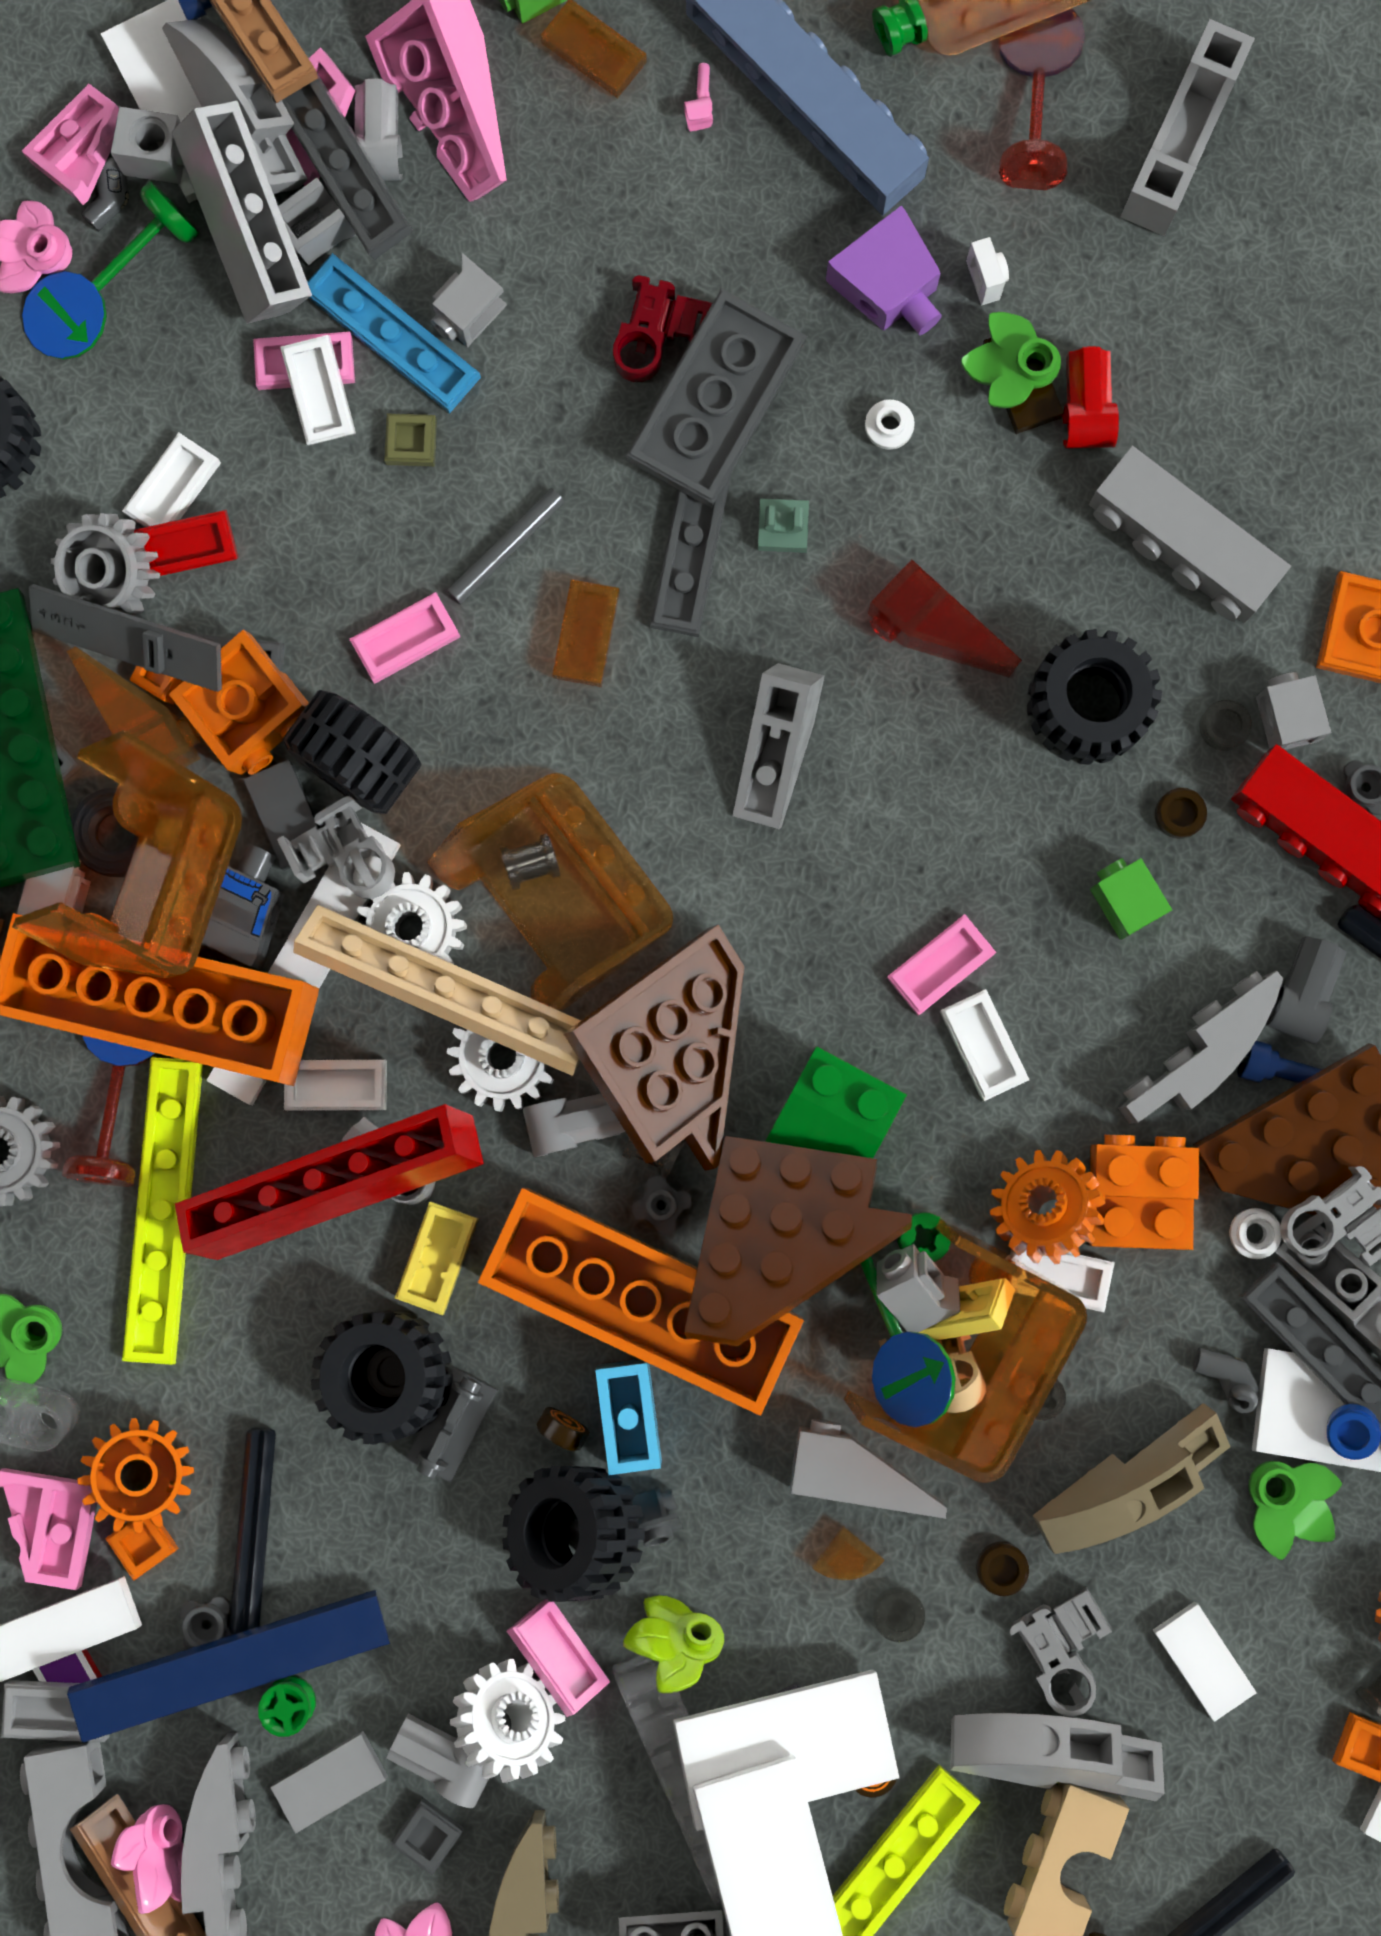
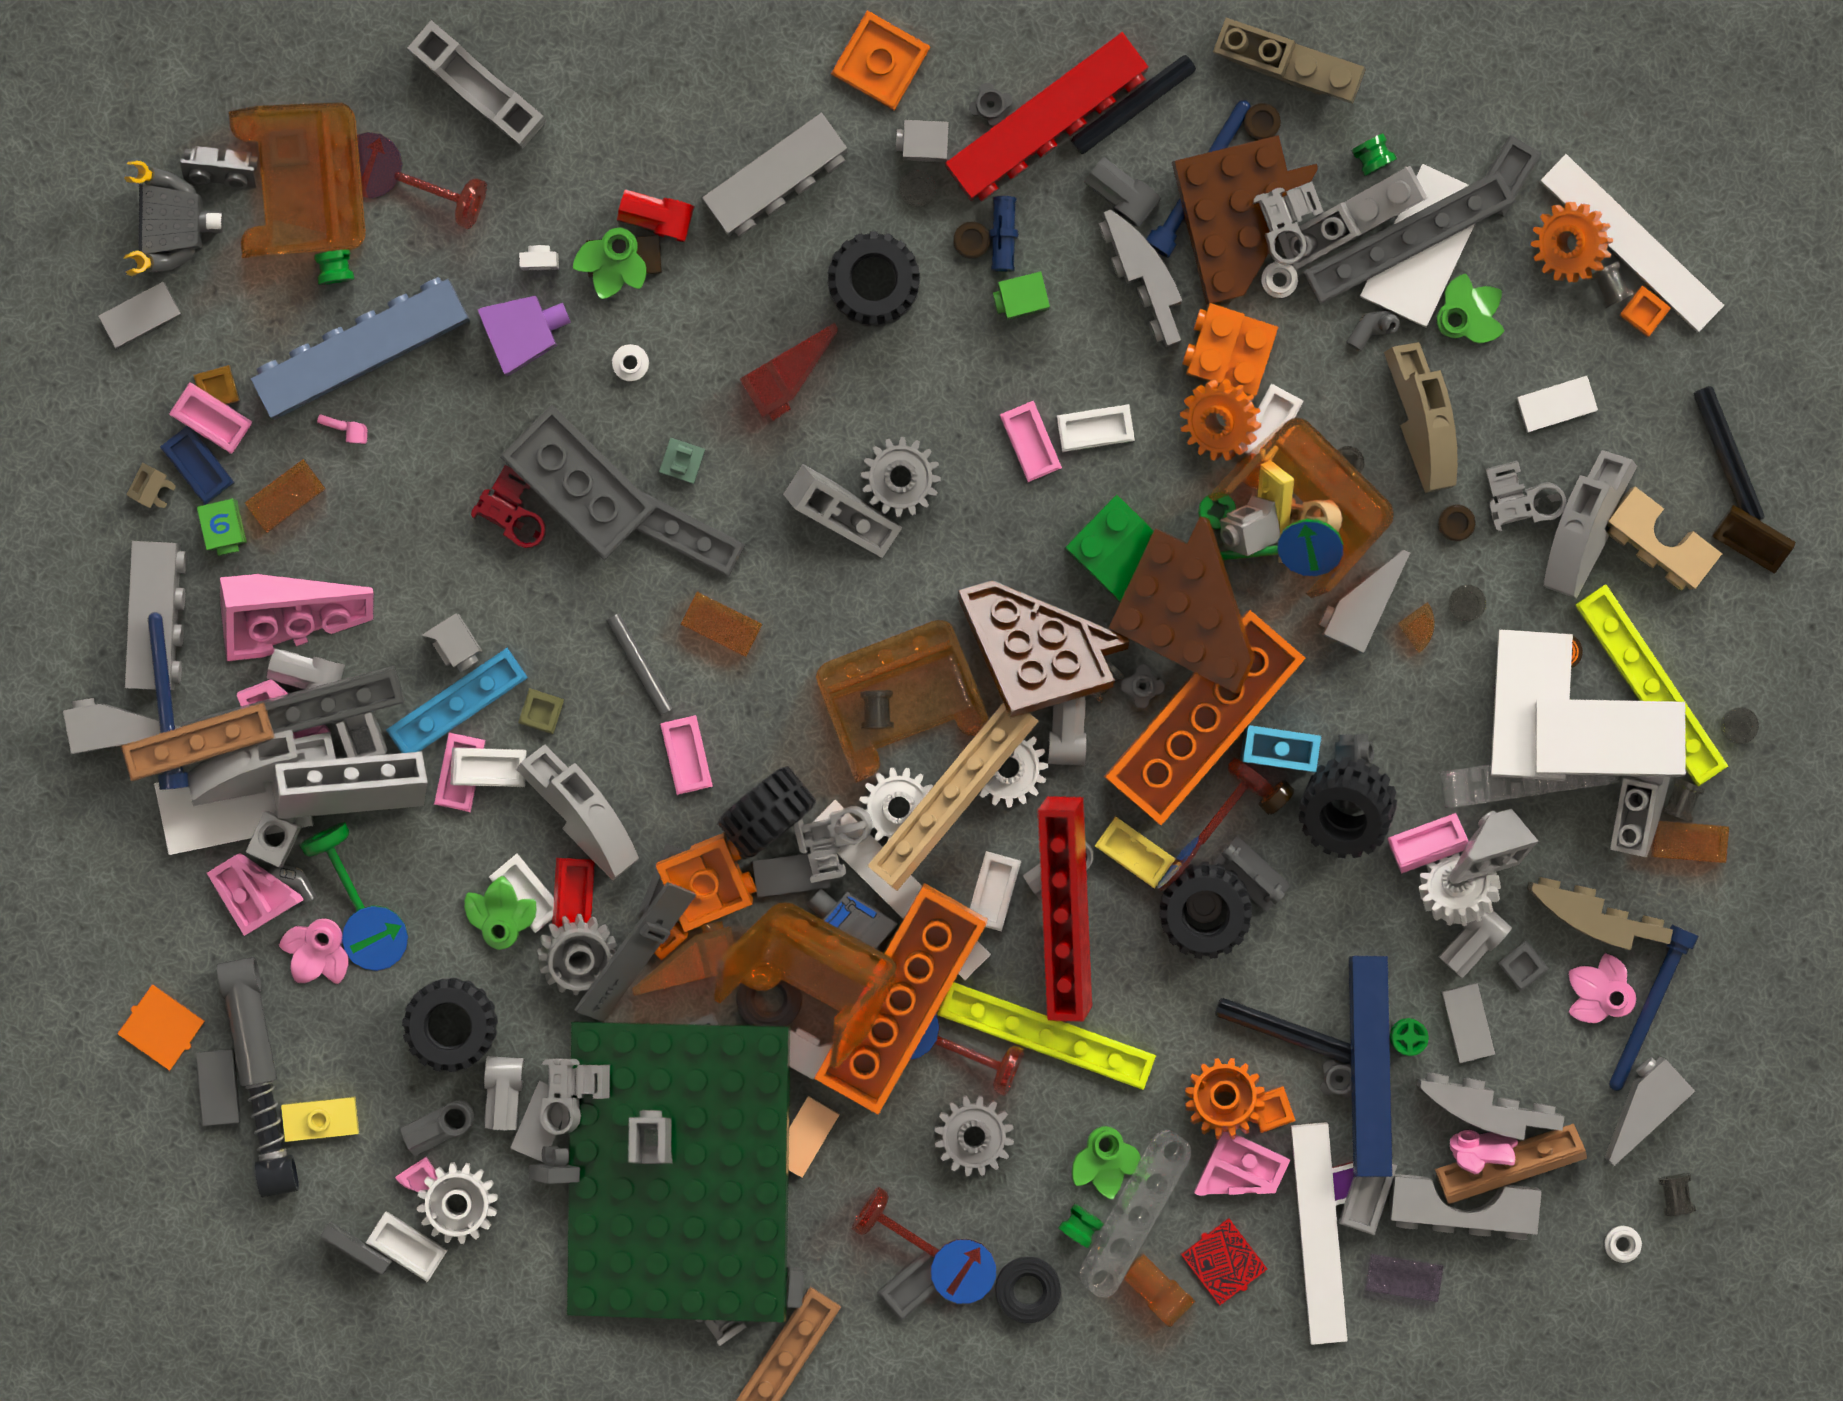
camera: 75 degrees left, 5 degrees up
(139, 456) = (501, 908): none -> bright green plate
(293, 522) = (588, 814): none -> light grey slope
(452, 1330) = (1248, 780): none -> clear red piece
(576, 1753) = (1495, 846): none -> light grey slope
(669, 1639) = (1436, 763): lime plate -> none
(838, 833) = (907, 496): none -> light grey gear
(1203, 851) = (1003, 234): none -> dark blue pin
(1353, 1431) = (1431, 257): blue tile -> none

